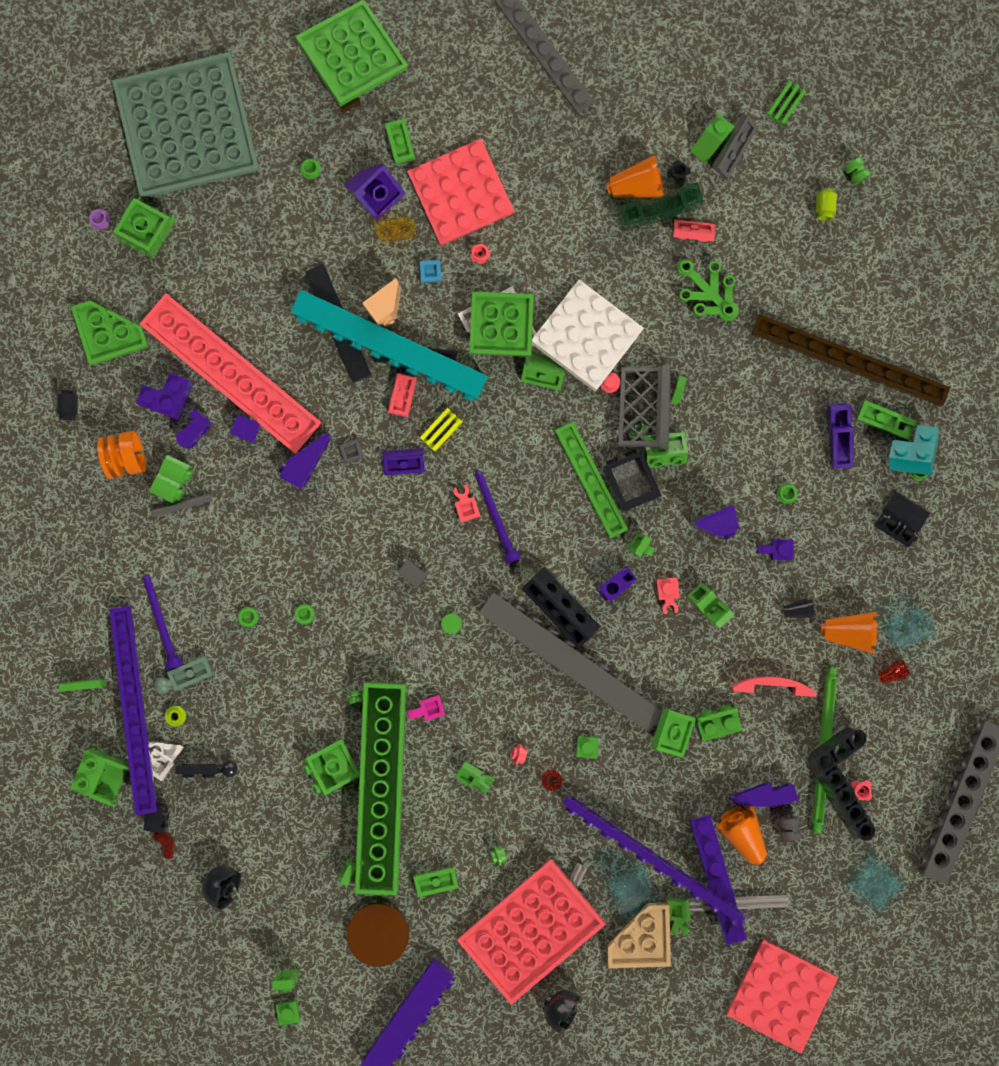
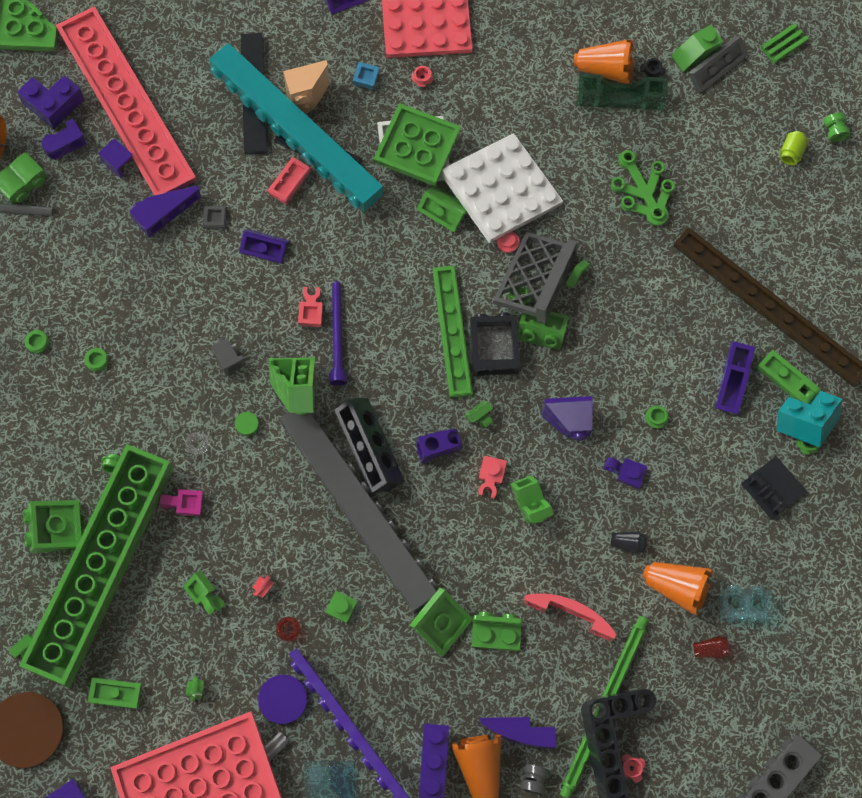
camera: 15 degrees right, 15 degrees down
(396, 229) = (348, 25): clear yellow plate -> none
(452, 417) = (327, 213): neon yellow tile -> none
(480, 579) = (294, 383): none -> bright green wedge
(569, 837) = (282, 699): none -> dark purple tile
(693, 230) = (640, 123): coral plate -> none

